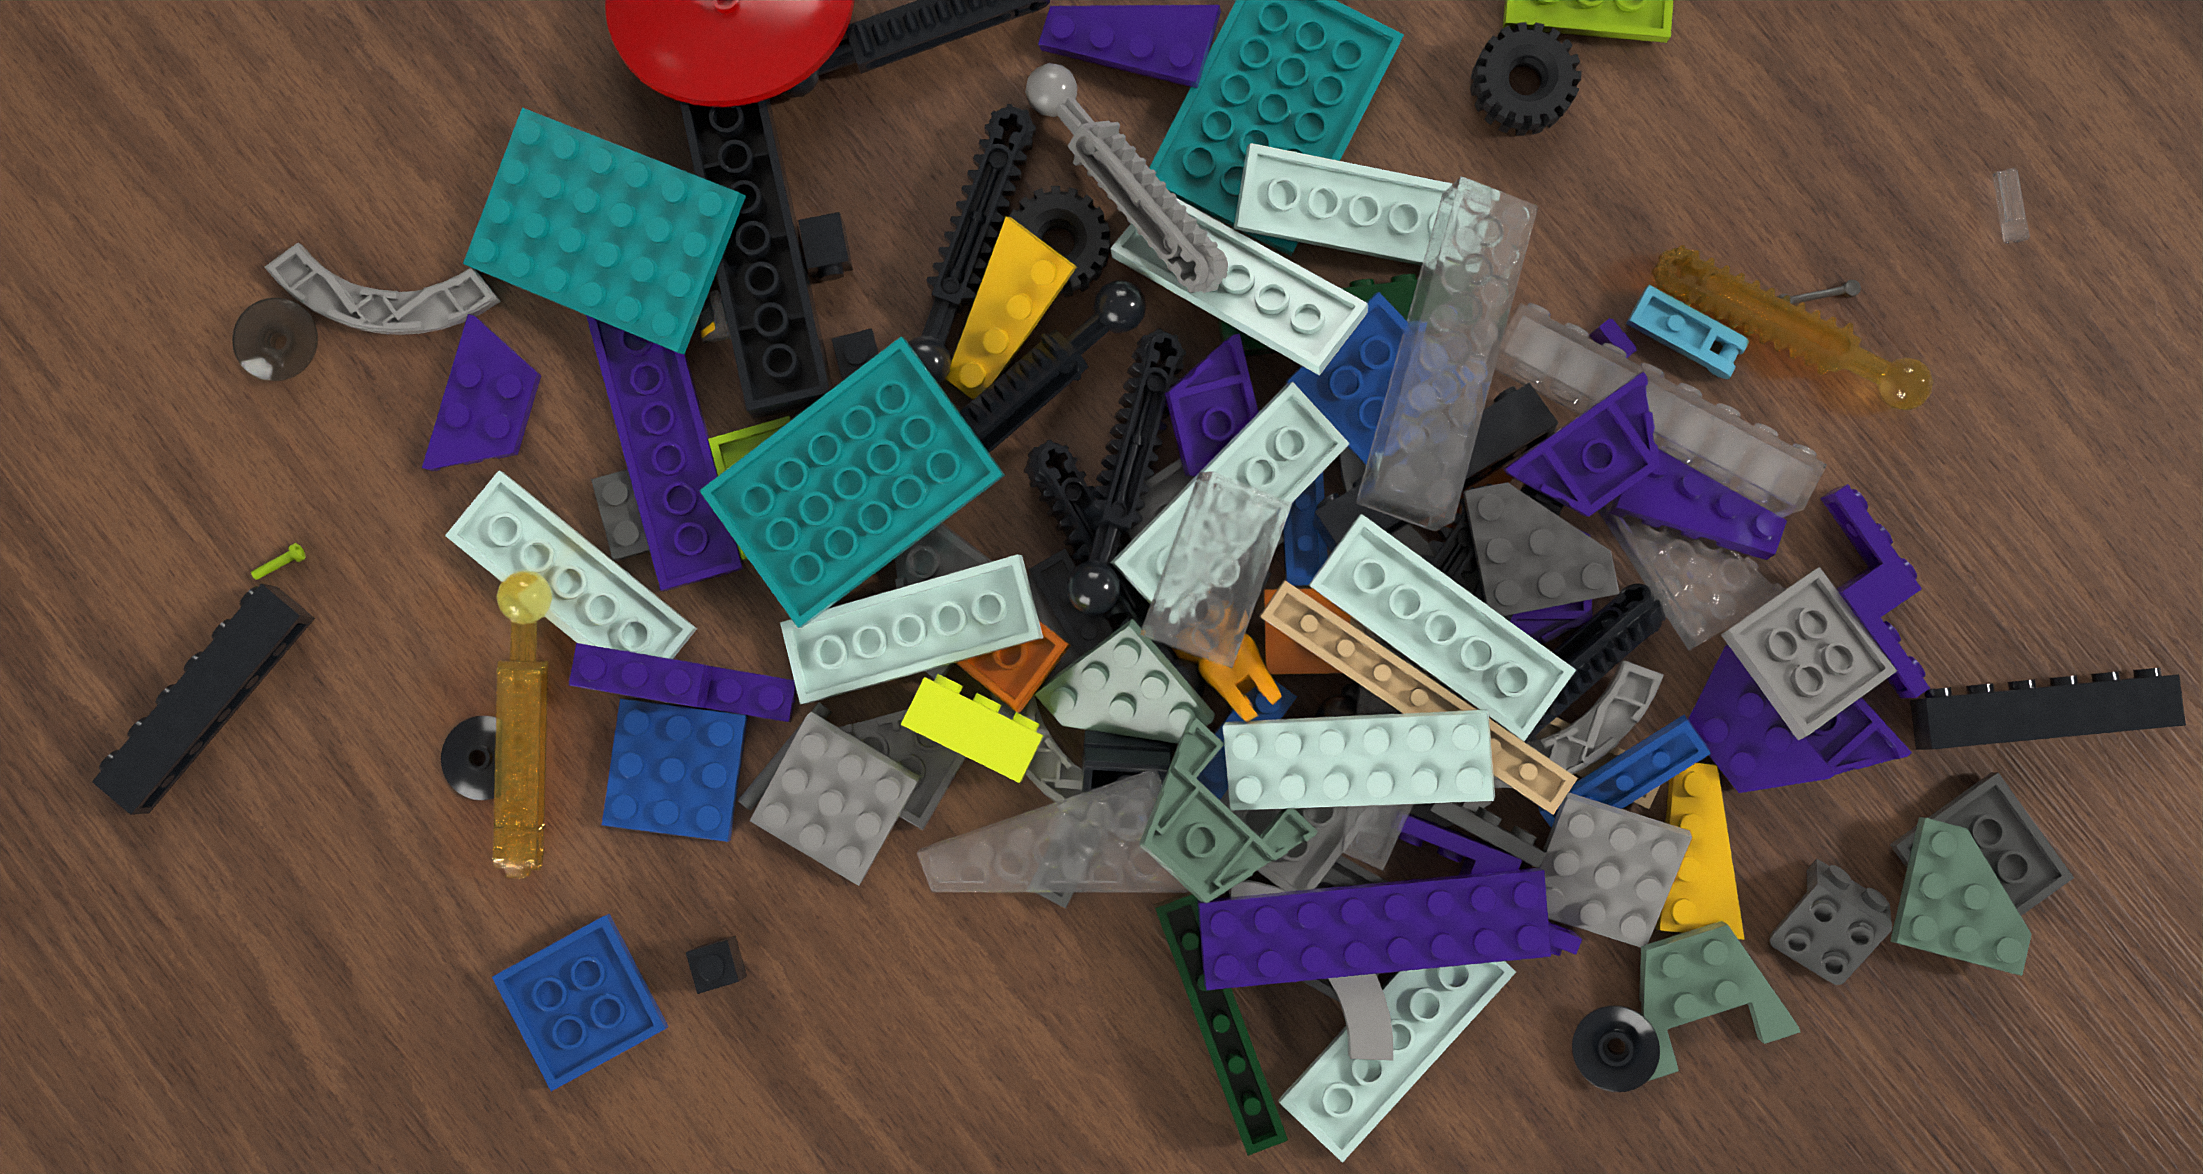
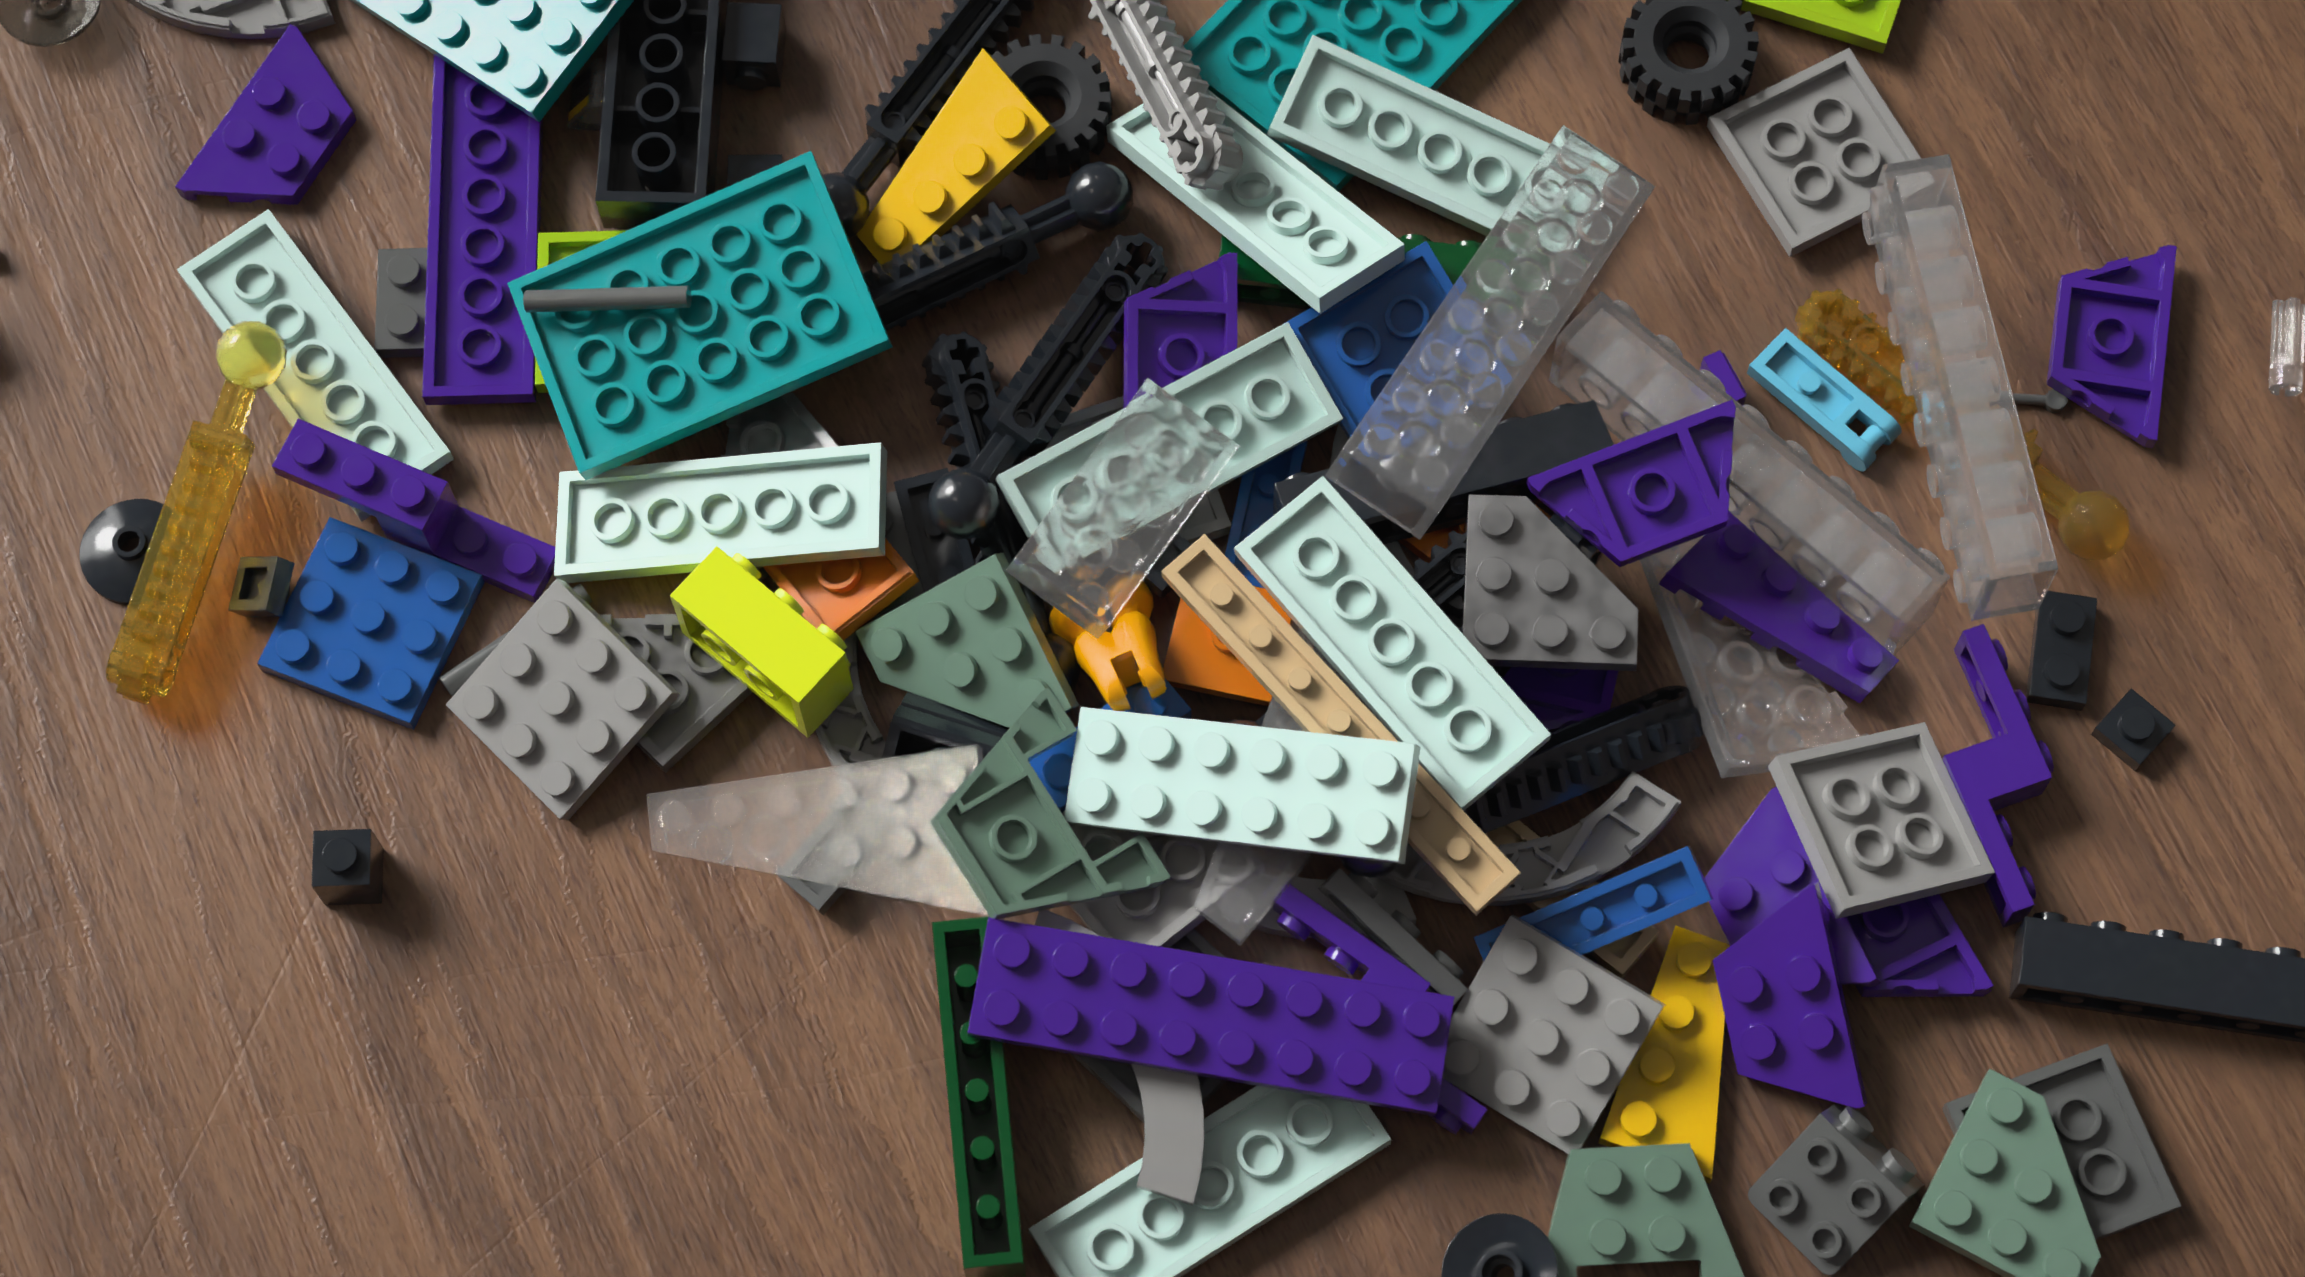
camera: 20 degrees right, 15 degrees down
(580, 1002) = (159, 874): blue plate -> none
(586, 766) = (261, 586): none -> black plate
(780, 489) = (607, 299): none -> dark grey bar
(1639, 135) = (1812, 149): none -> light grey plate
(1774, 804) = (1789, 1004): none -> dark purple wing
(1801, 313) = (1959, 389): none -> clear brick
(1887, 233) = (2114, 341): none -> dark purple wing
(1898, 481) = (2061, 651): none -> black plate
(1962, 529) = (2133, 729): none -> black plate

